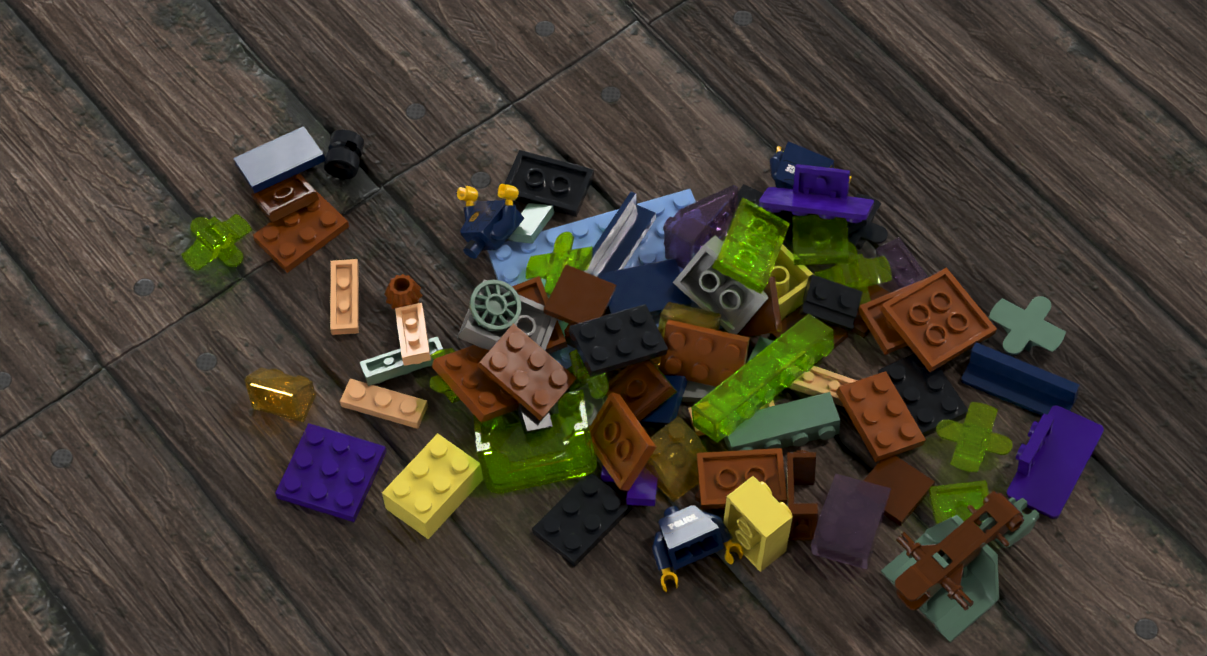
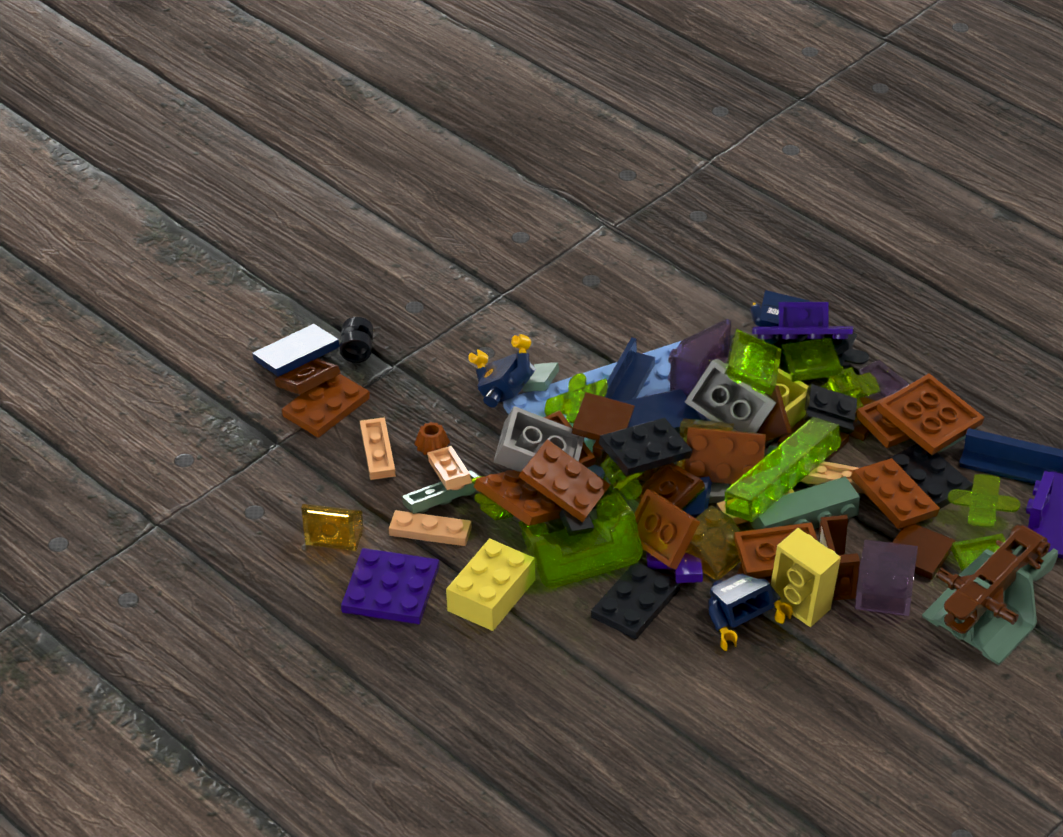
camera: 10 degrees left, 15 degrees down
(215, 240) = (246, 416): clear neon green piece -> none
(495, 305) = (528, 425): sand green wheel -> none
(550, 182) = (555, 345): black plate -> none
(1027, 326) = (1010, 415): sand green piece -> none

